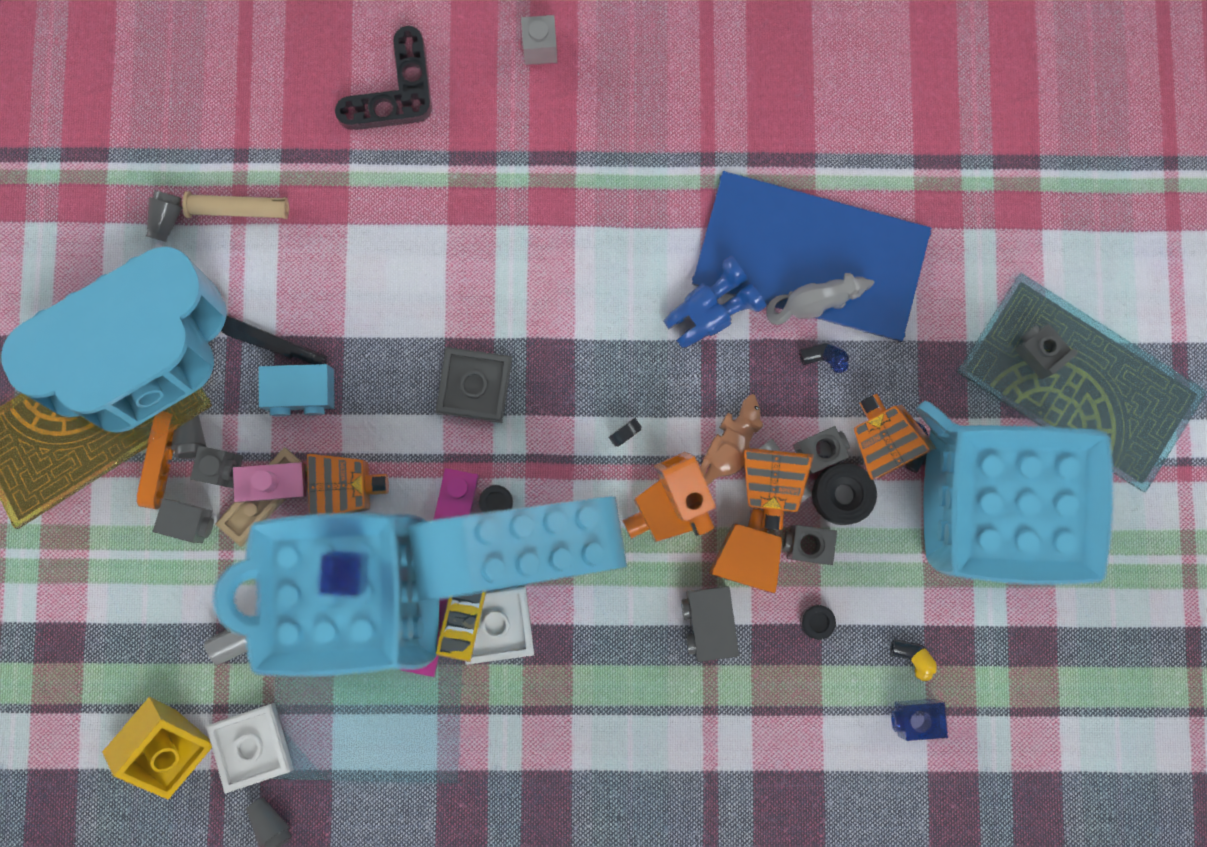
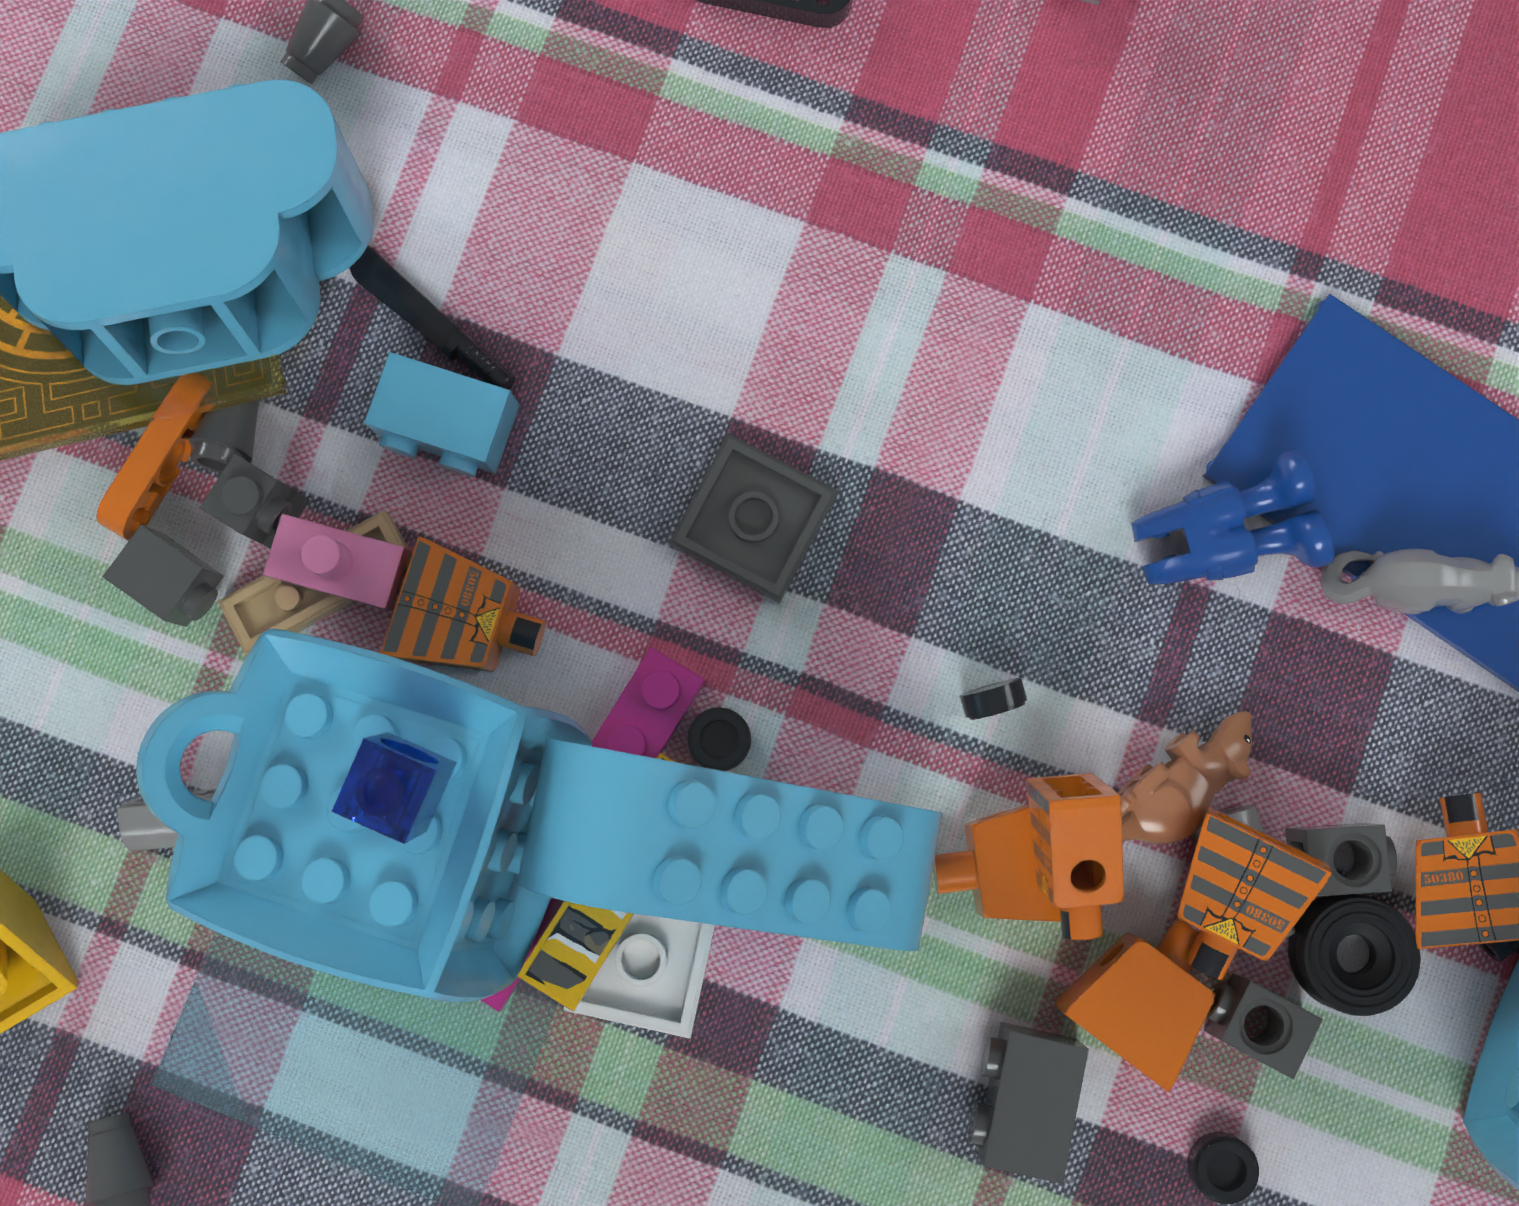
camera: 30 degrees right, 0 degrees up
(235, 206) = (450, 62): tan pin -> none
(249, 748) = (135, 1018): white tile -> none
(827, 352) = (1422, 696): arm -> none

